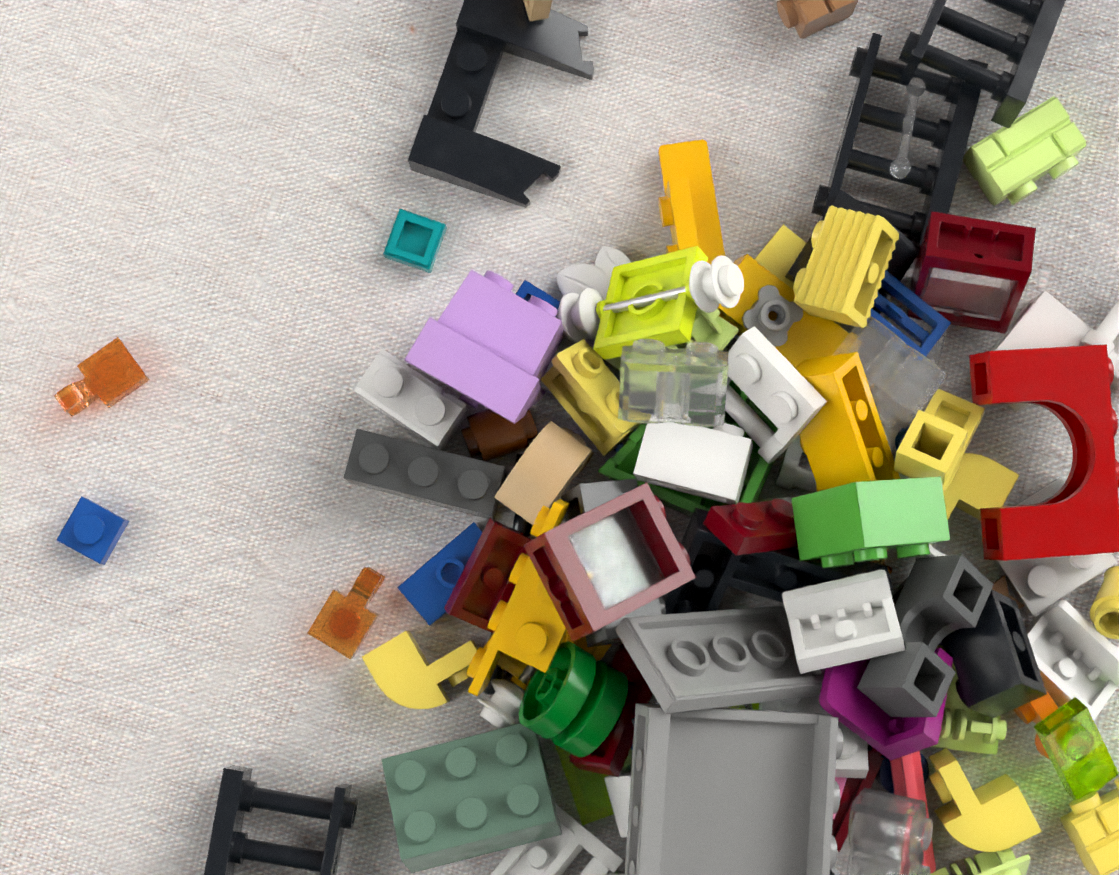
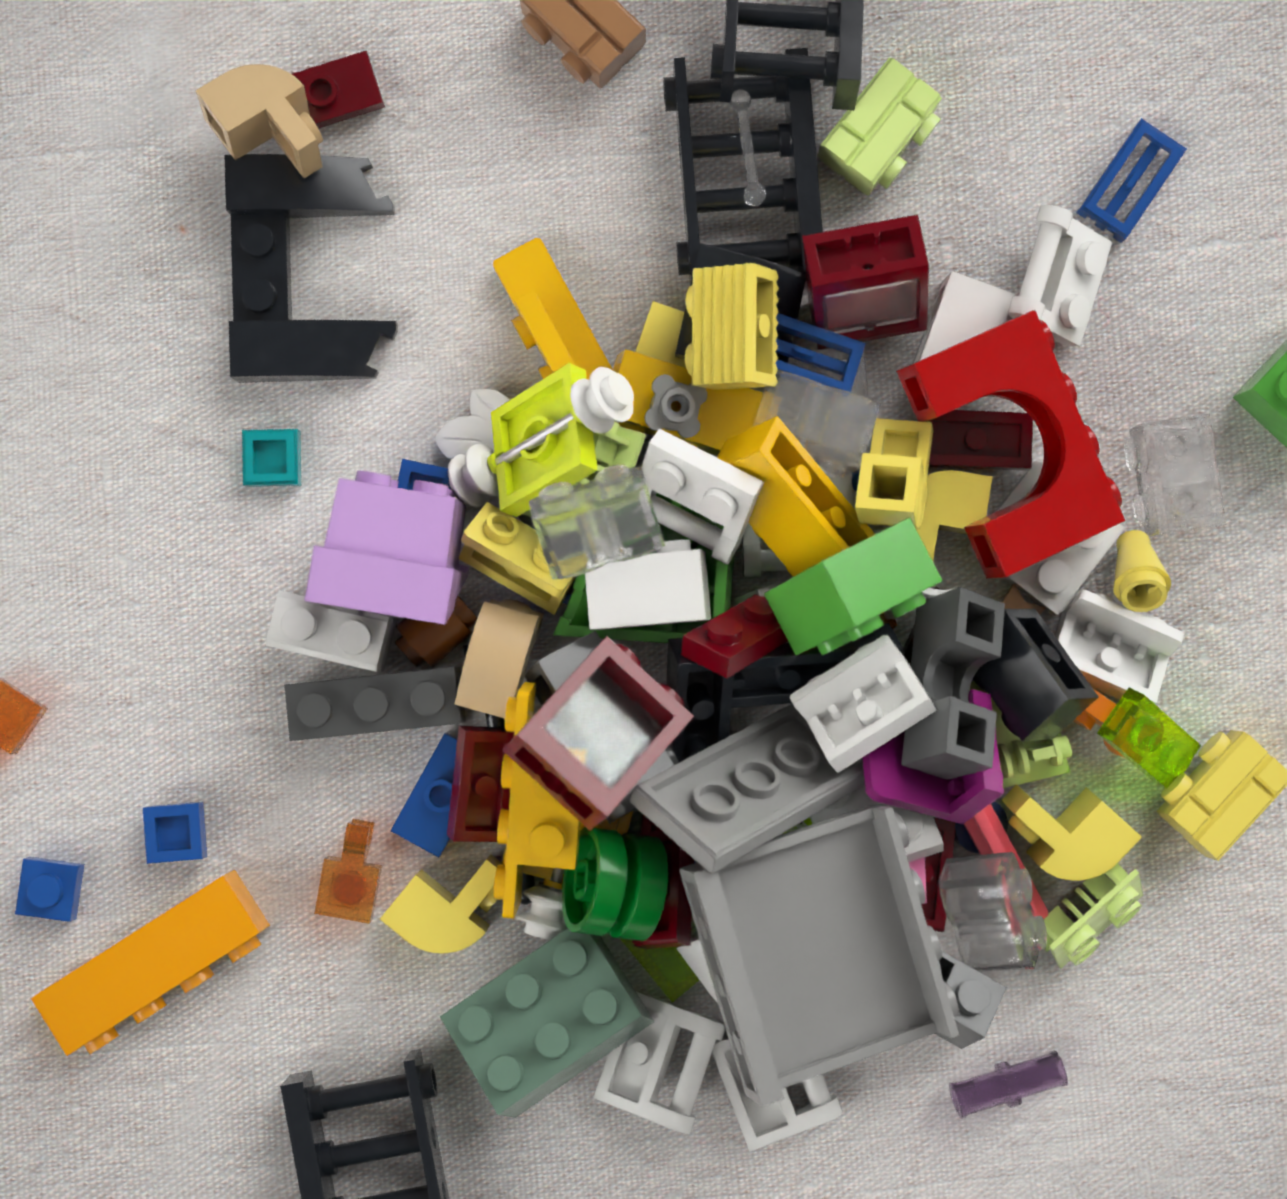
camera: 25 degrees left, 5 degrees up
(154, 623) = (151, 962): none -> light orange brick
(216, 521) = (174, 832): none -> blue plate
(1020, 443) = (982, 440): none -> dark red plate

